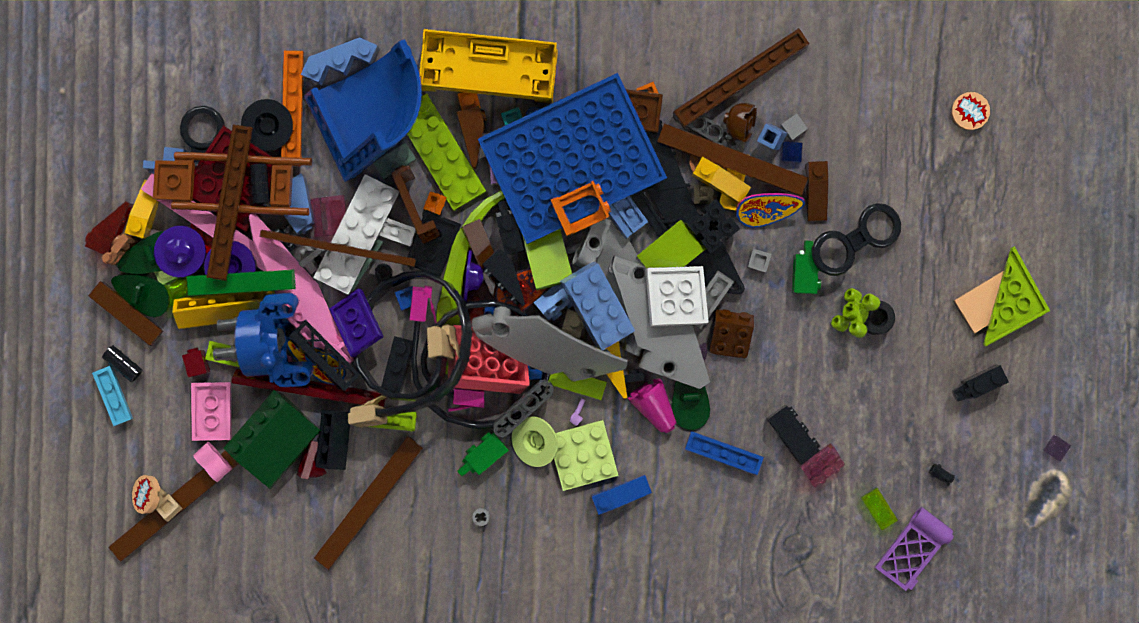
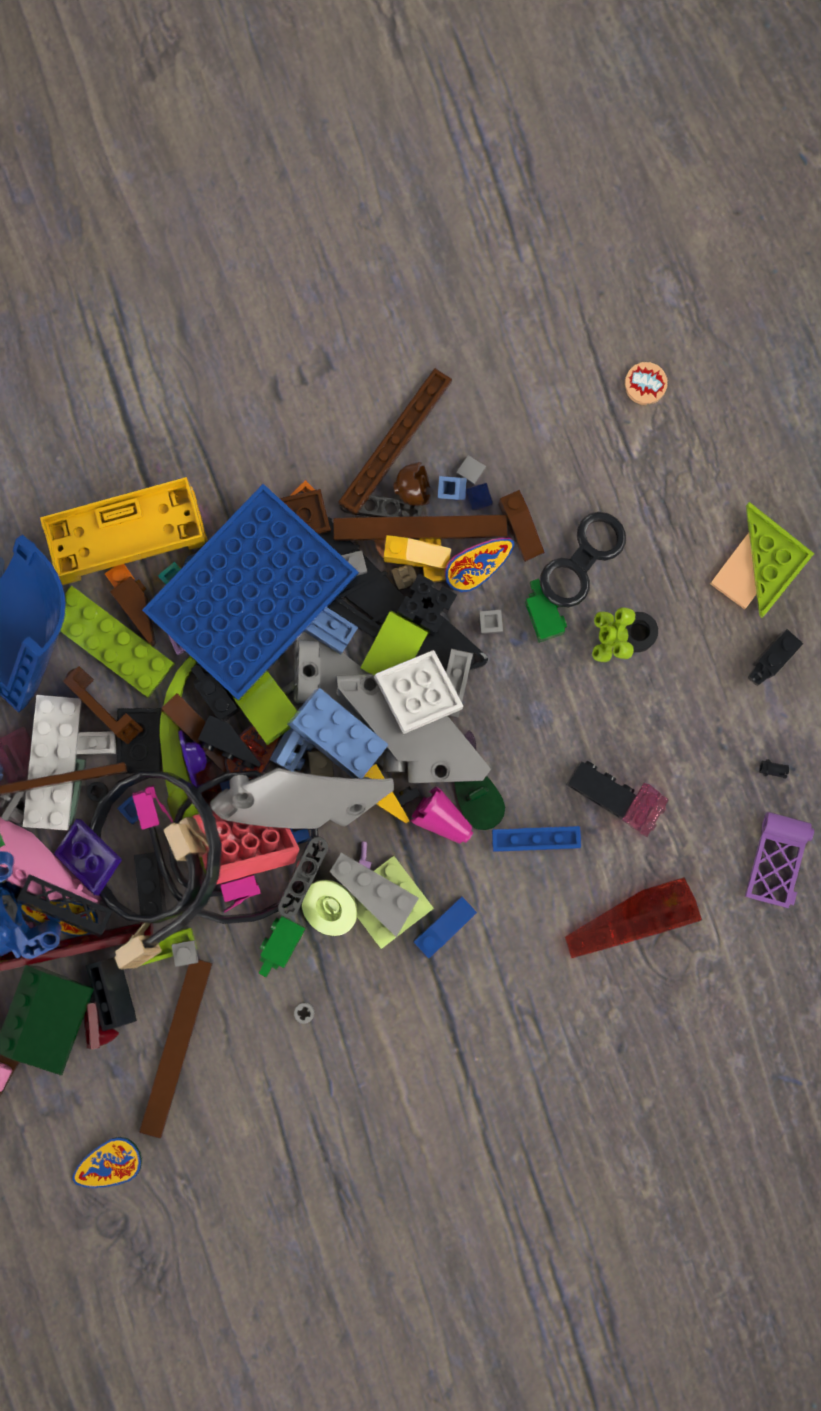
camera: 25 degrees left, 5 degrees down
(280, 574) = (109, 1164): none -> shield
(396, 158) = (69, 660): sand green plate -> none
(404, 431) = (185, 953): none -> light grey plate
(434, 203) = (124, 696): orange plate -> none
(580, 450) = (380, 896): none -> light grey wedge
(589, 387) = (363, 826): lime tile -> none
(600, 215) = (281, 615): orange panel -> none
(668, 166) = (357, 561): none -> light grey plate
(732, 333) = (493, 709): reddish brown bracket -> none
(780, 549) = (638, 917): none -> clear red wedge
(879, 508) = (723, 832): clear neon green plate -> none

